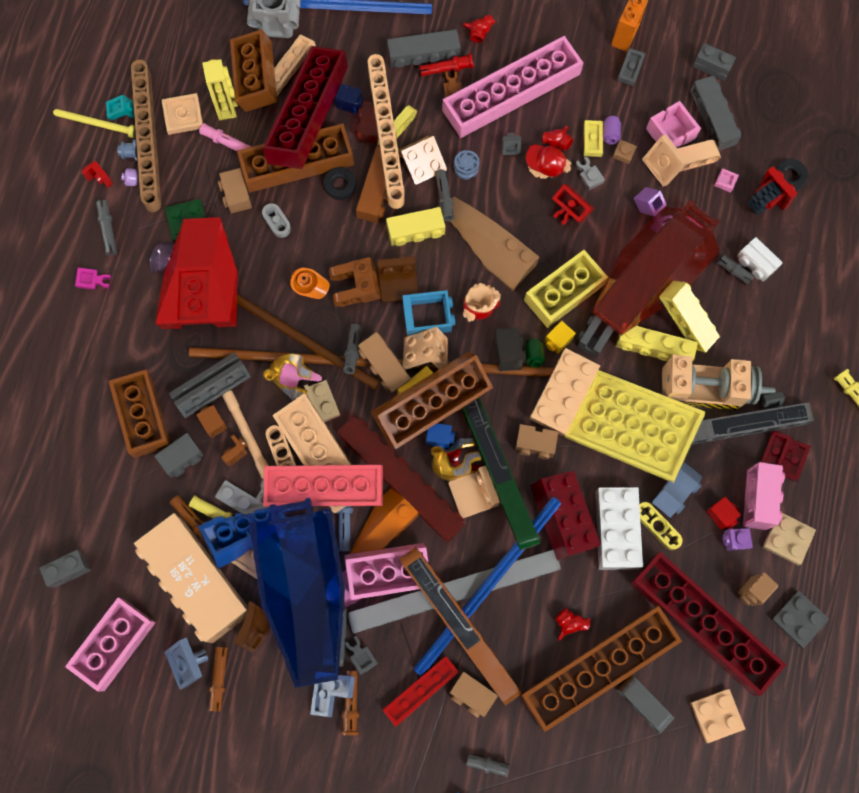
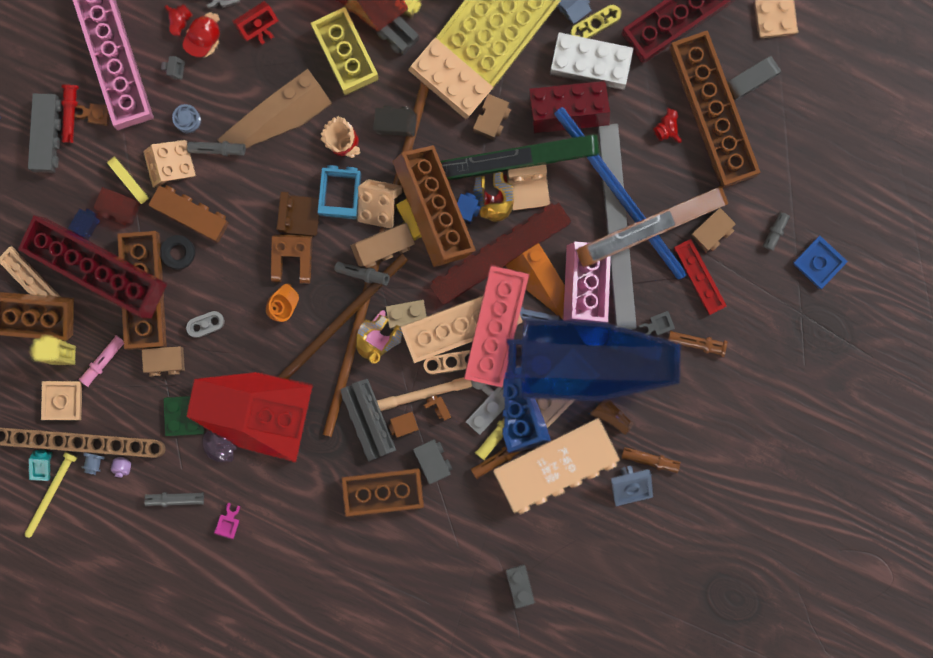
camera: 75 degrees left, 10 degrees up
(94, 170) = (115, 497): red bracket -> none
(110, 644) = (600, 552): bright pink brick -> none
(325, 694) = (689, 366): sand blue plate -> none
(386, 138) = (127, 187): light nougat beam -> none
(415, 226) = (244, 185): light yellow brick -> none
(479, 28) = (31, 69): red animal -> none
(534, 353) = (403, 97): dark green brick -> none
(559, 337) = (392, 70): yellow brick -> none

